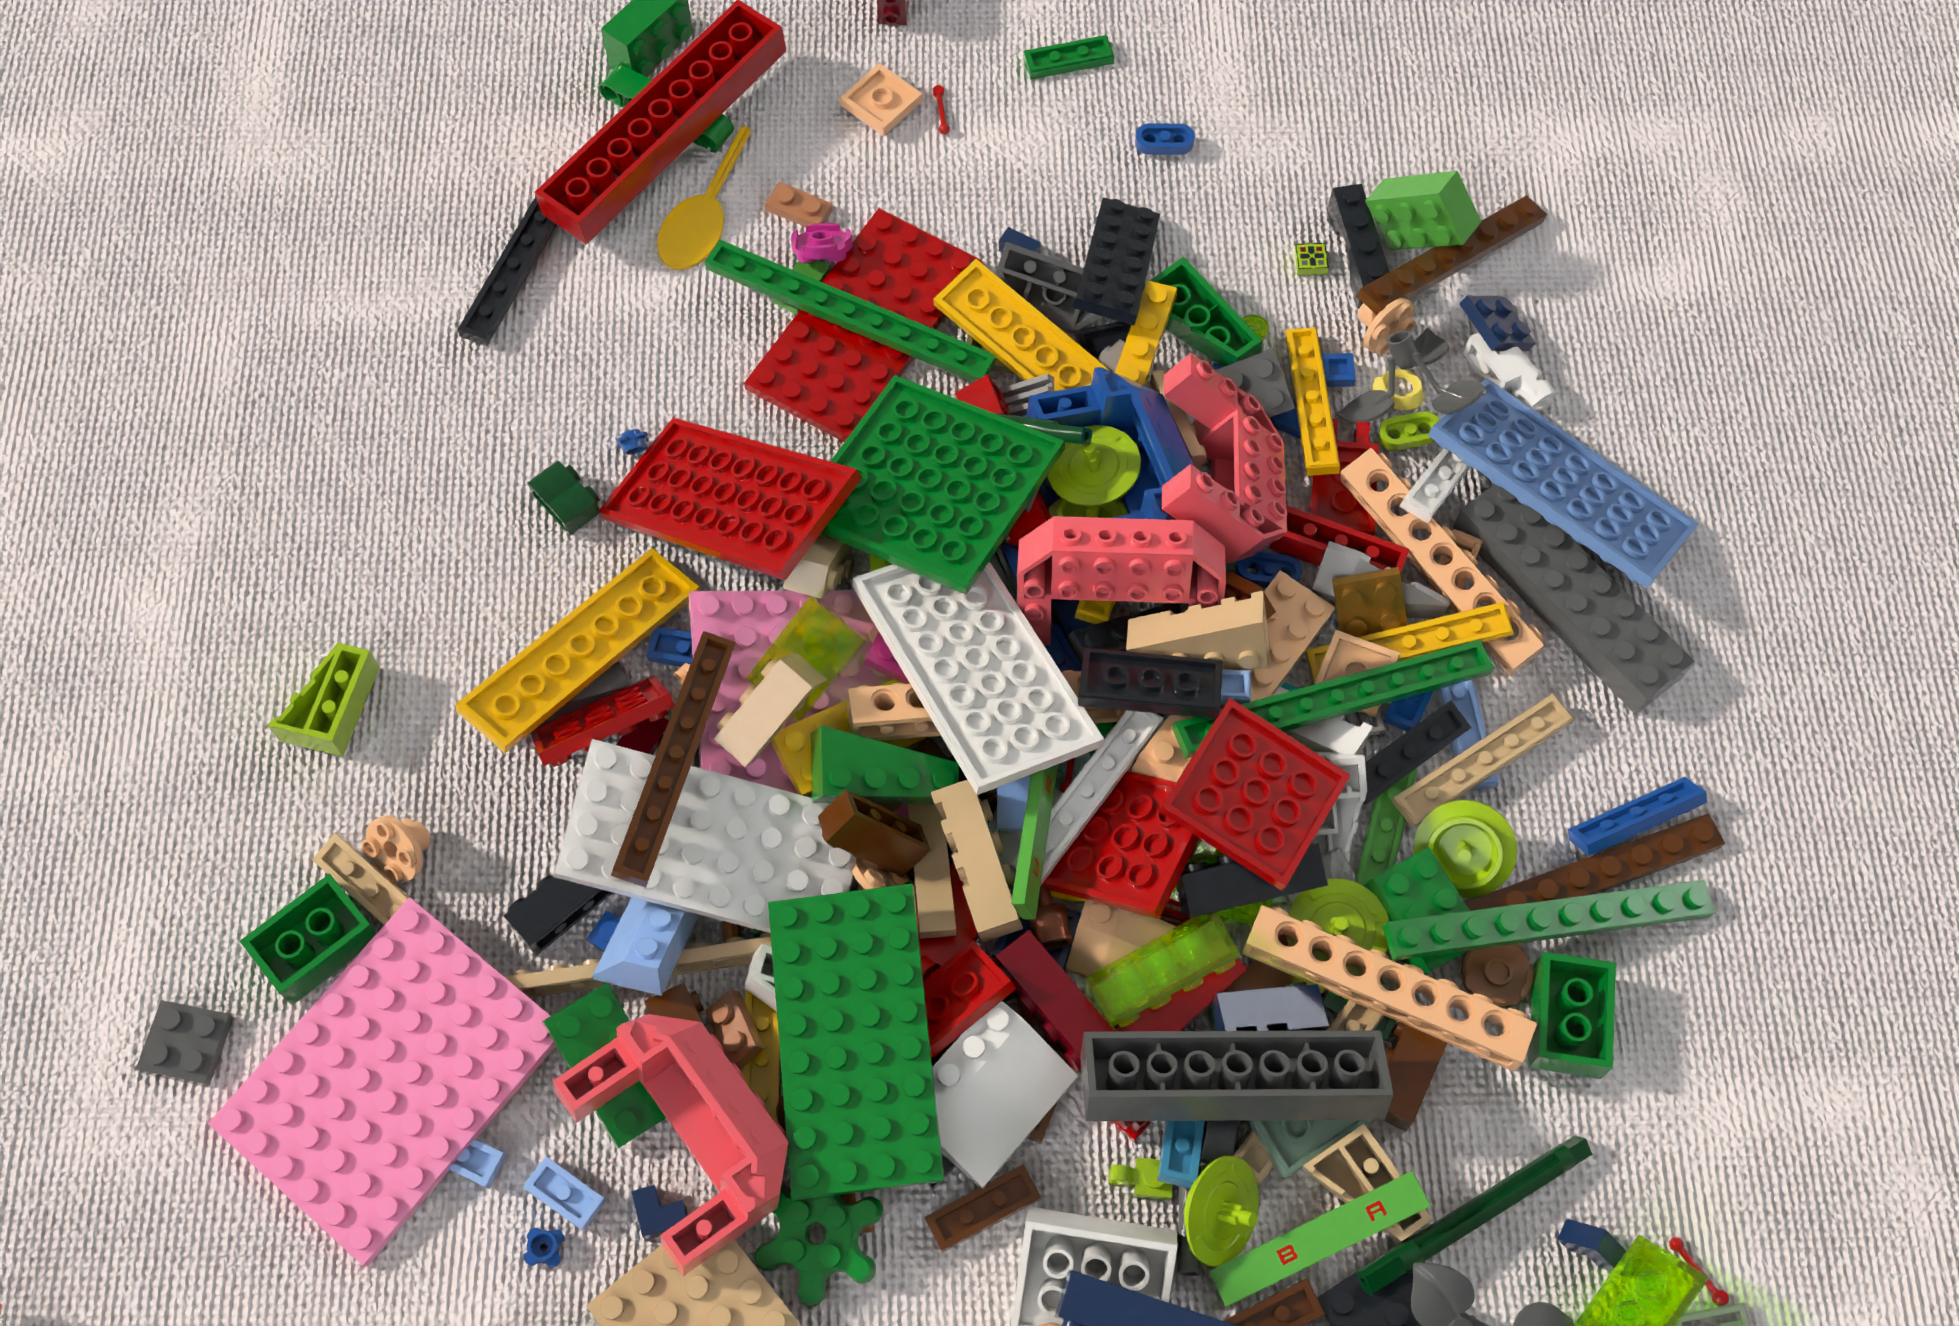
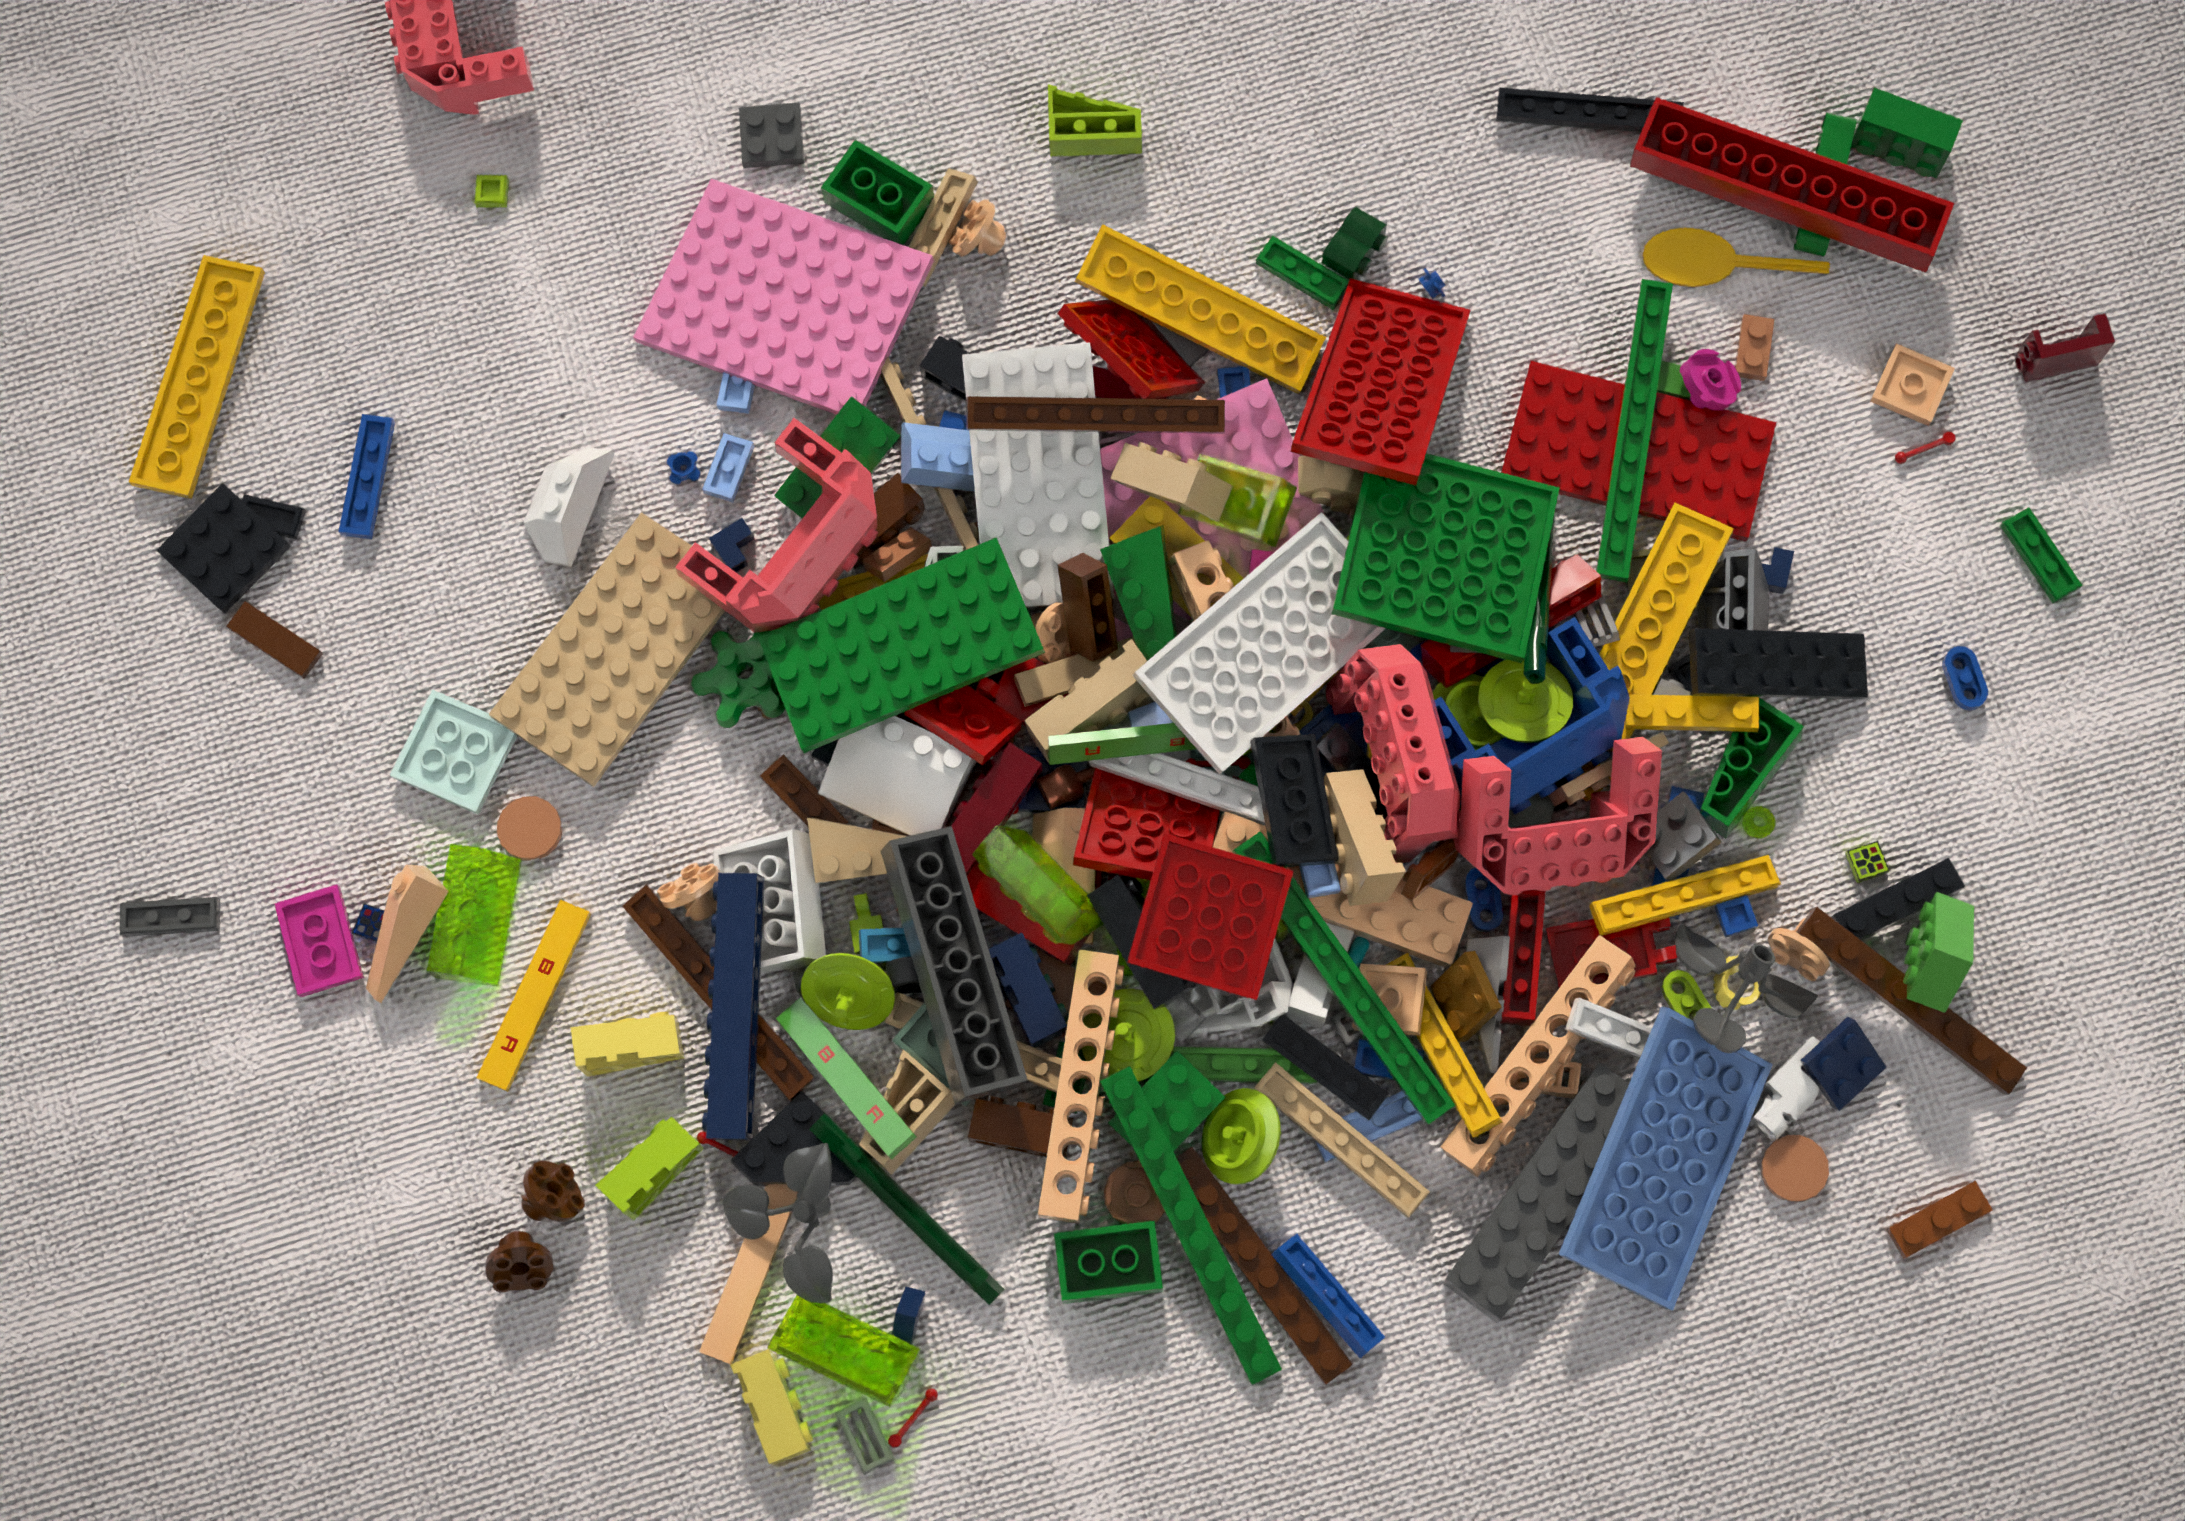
camera: 80 degrees right, 10 degrees up
(572, 554) = (1302, 272): none -> green tile
(1065, 1162) = (846, 850): none -> tan wedge
(1582, 393) = (1794, 1168): none -> nougat tile
(1647, 299) = (1939, 1219): none -> dark orange plate

